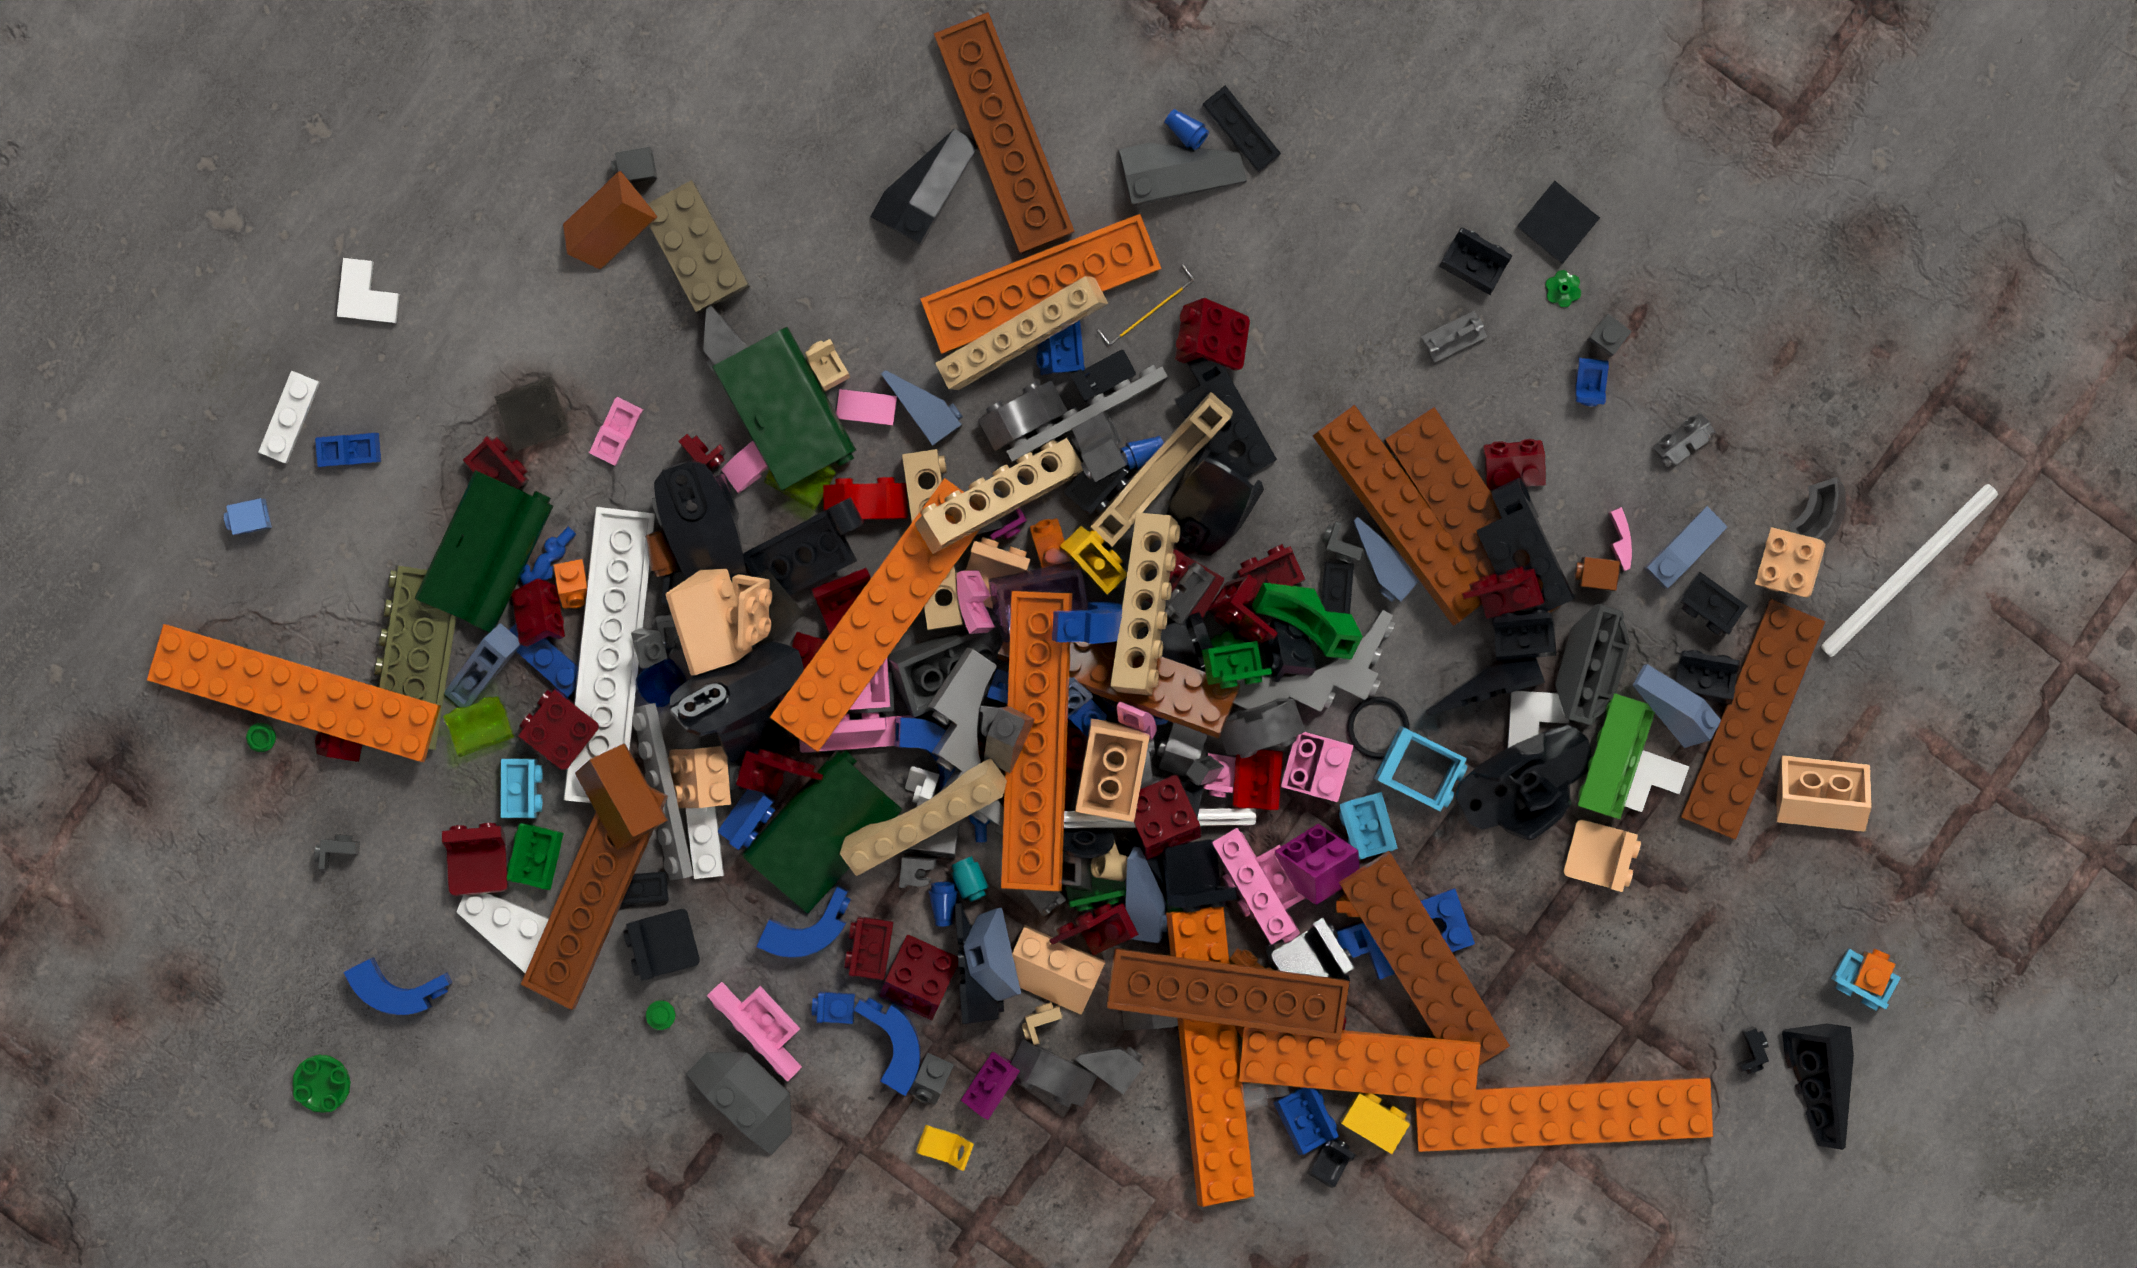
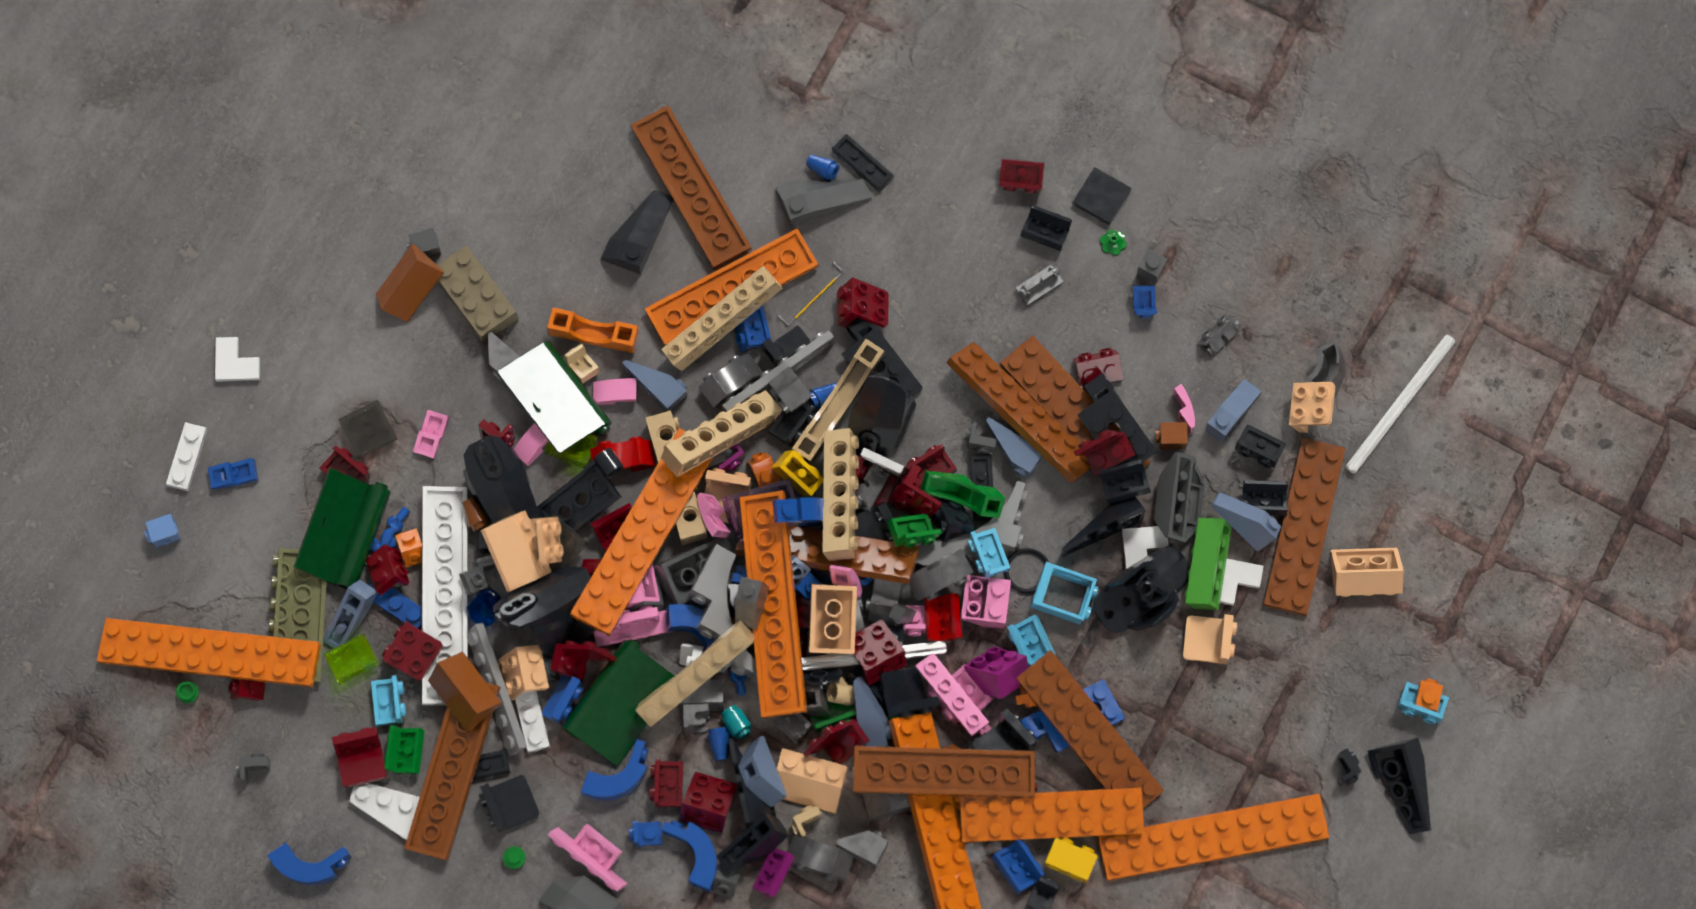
camera: 10 degrees left, 15 degrees down
(847, 321) = (609, 335): none -> orange arch
(969, 1046) = (753, 843): none -> black slope
(1214, 565) = (886, 463): none -> white tile
(1329, 706) = (989, 553): none -> medium azure bracket
(1453, 180) = (1021, 175): none -> dark red bracket

